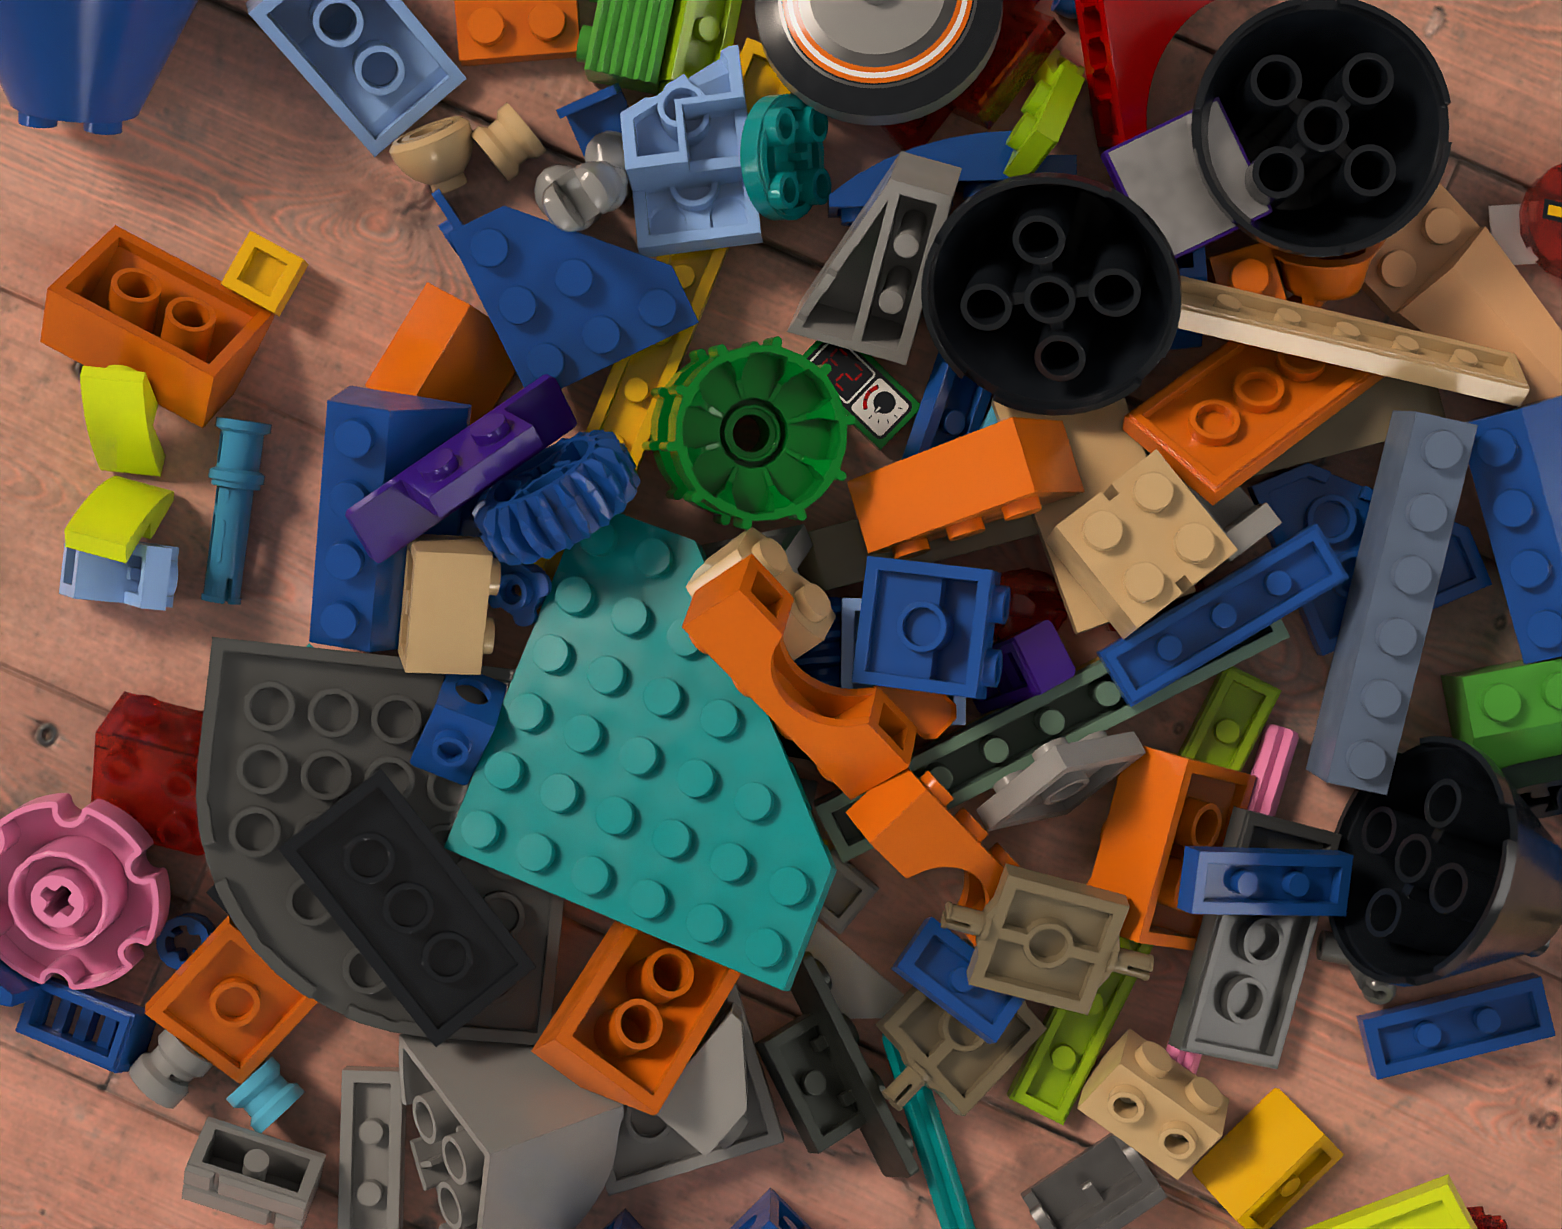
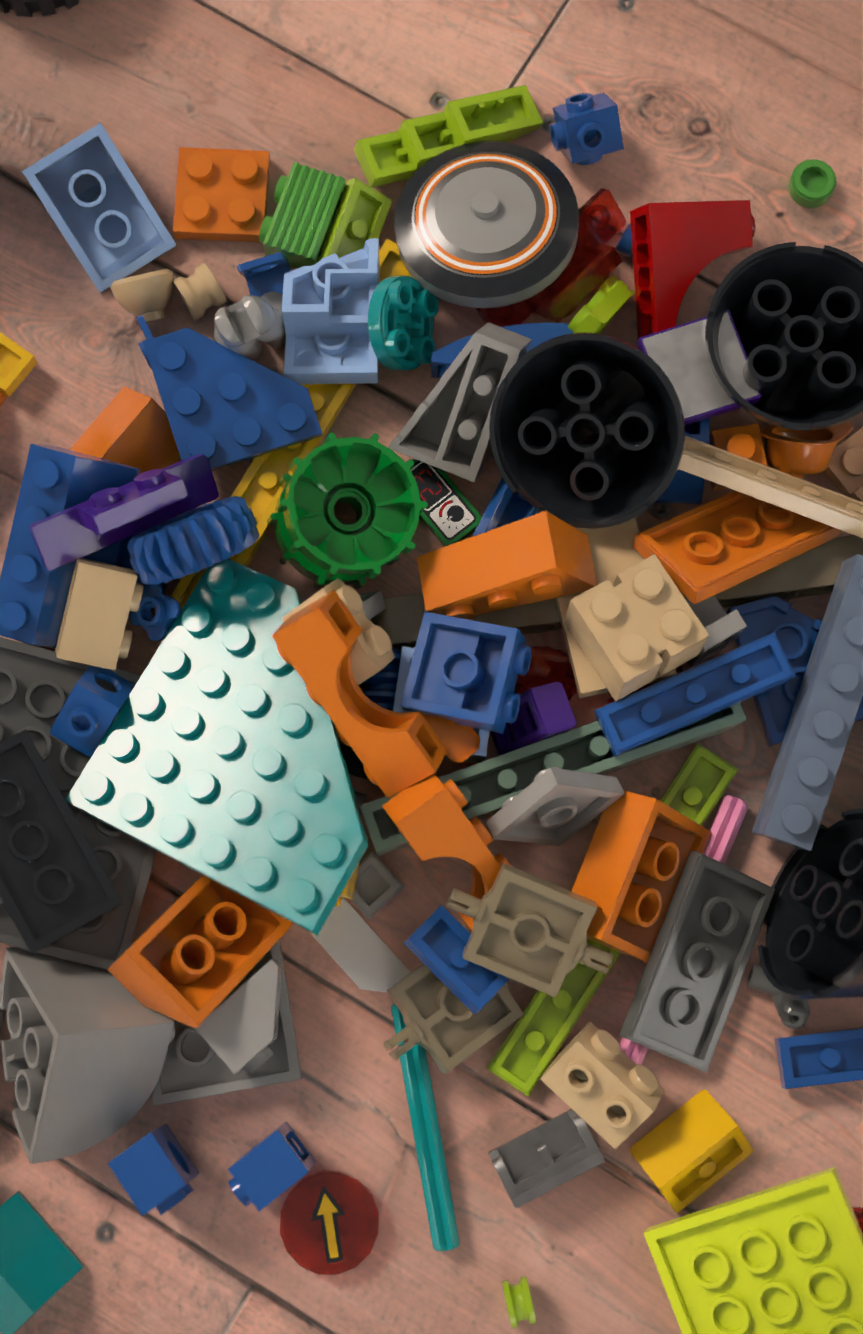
camera: 10 degrees right, 10 degrees down
(827, 1078) = (342, 1029): pearl dark grey bracket -> none
(1264, 881) = (708, 908): blue plate -> none

